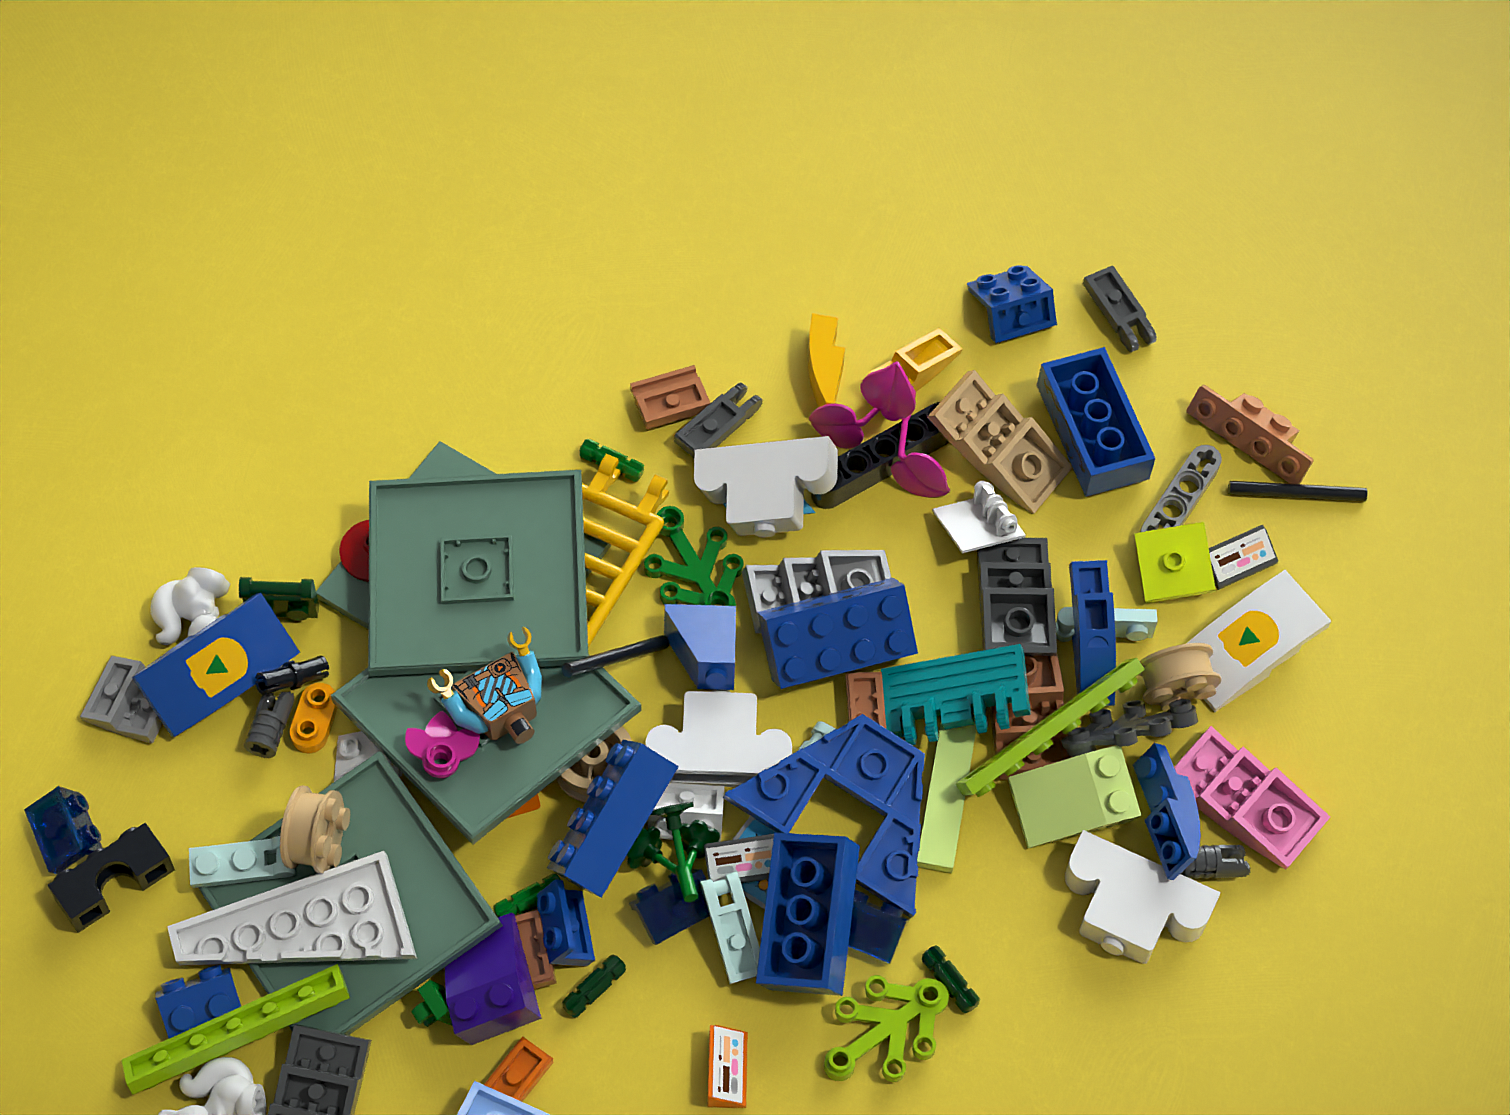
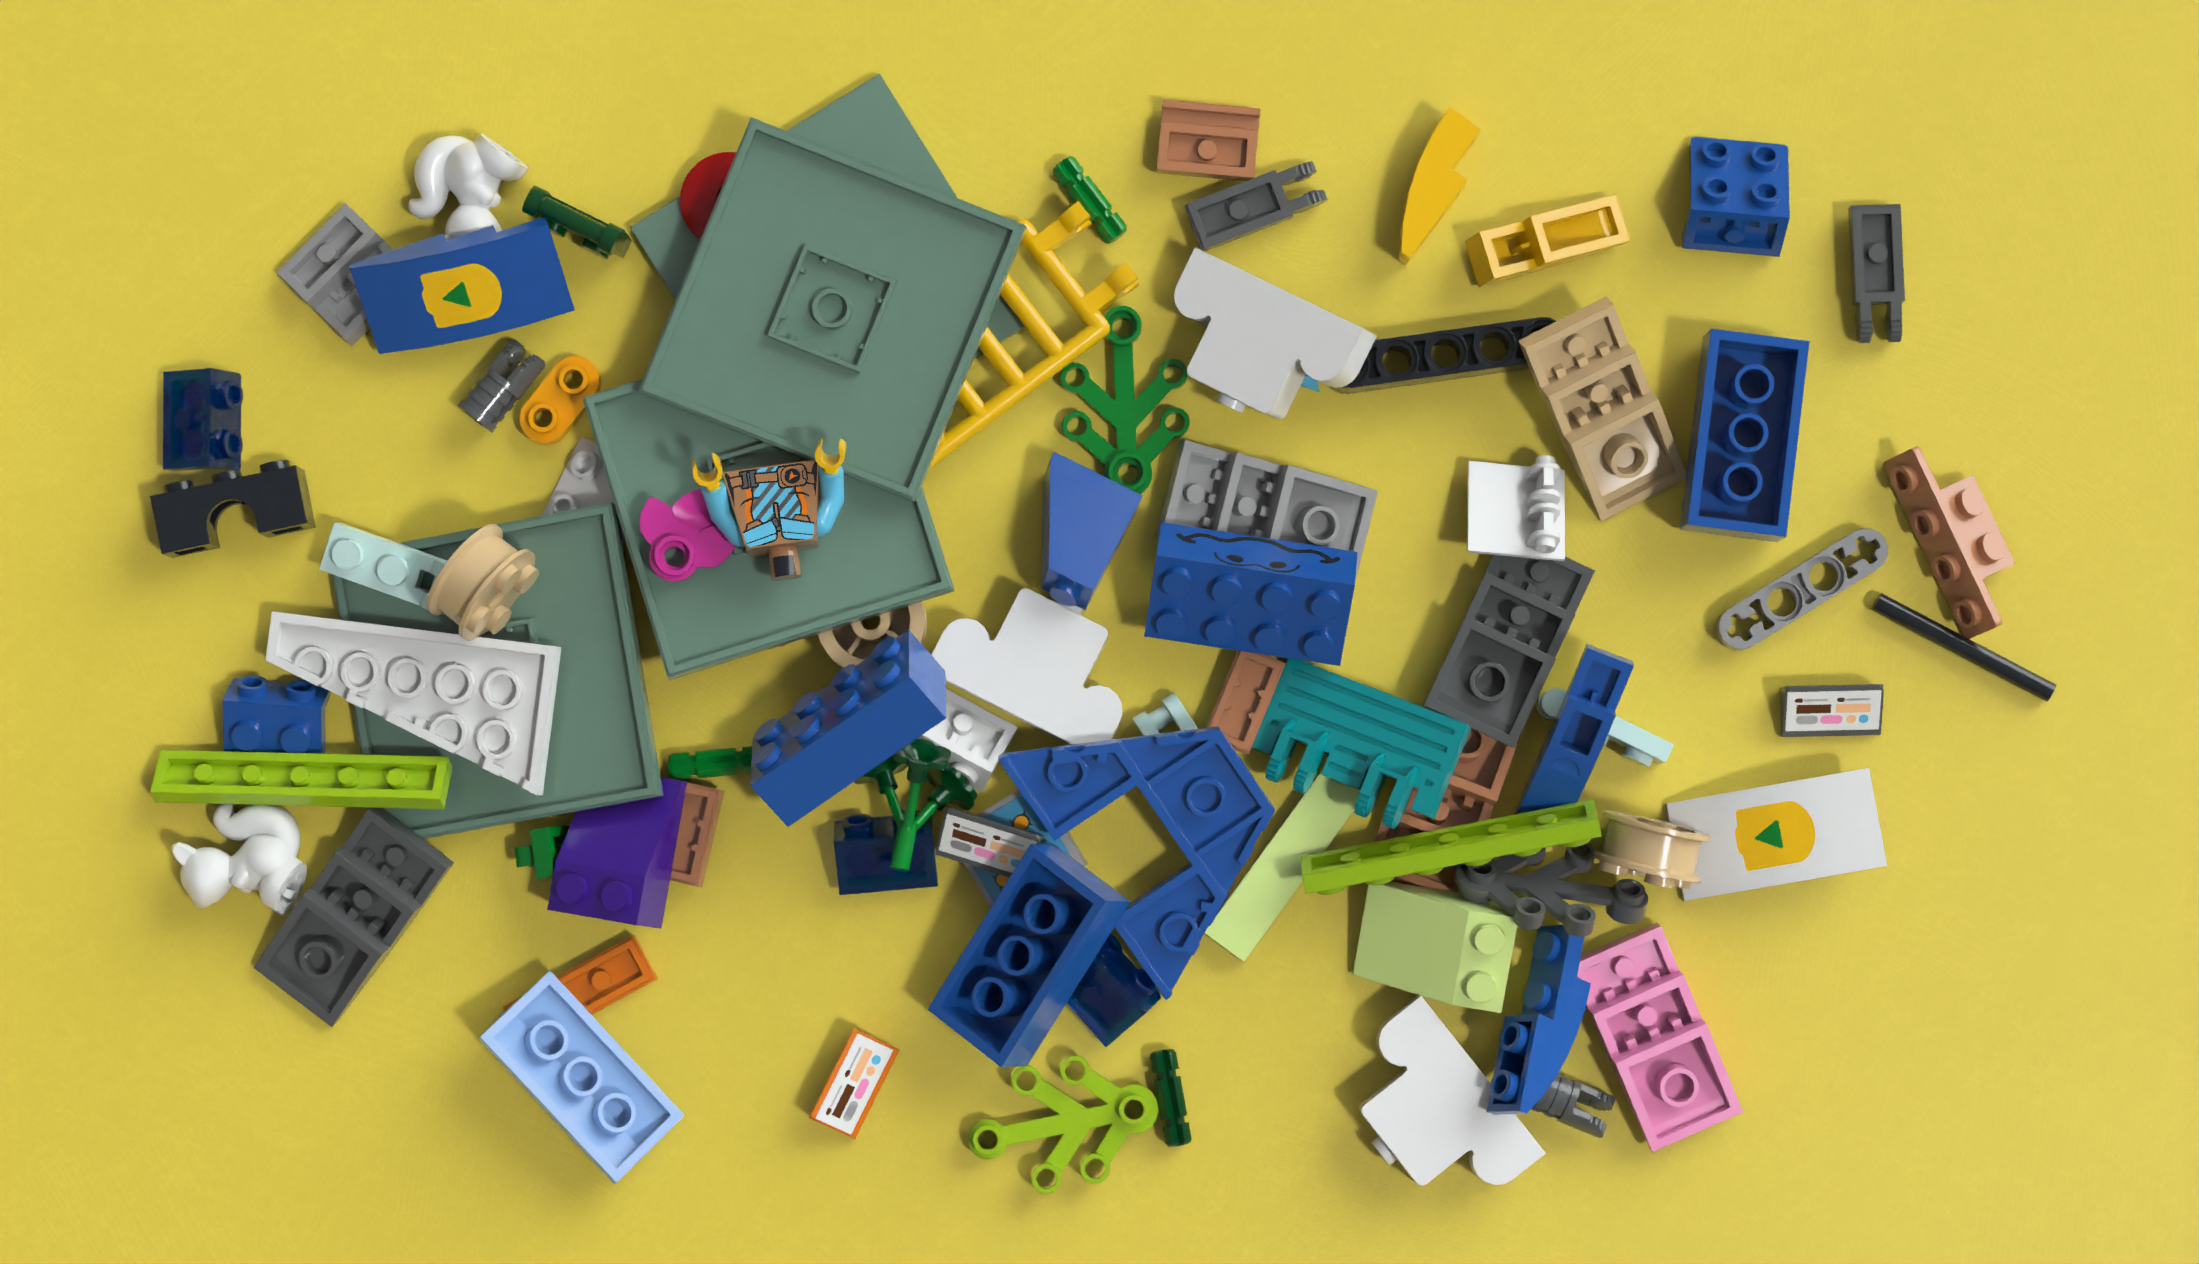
camera: 30 degrees right, 25 degrees up
(292, 675) = (552, 338): black pin -> none
(565, 925) = (738, 828): blue bracket -> none
(594, 986) = (744, 910): dark green axle -> none
(615, 656) = (955, 503): black bar -> none
(732, 927) = (937, 920): light aqua plate -> none
(894, 396) = (1474, 315): dark pink plant -> none
(1175, 562) = (1738, 684): neon yellow plate -> none

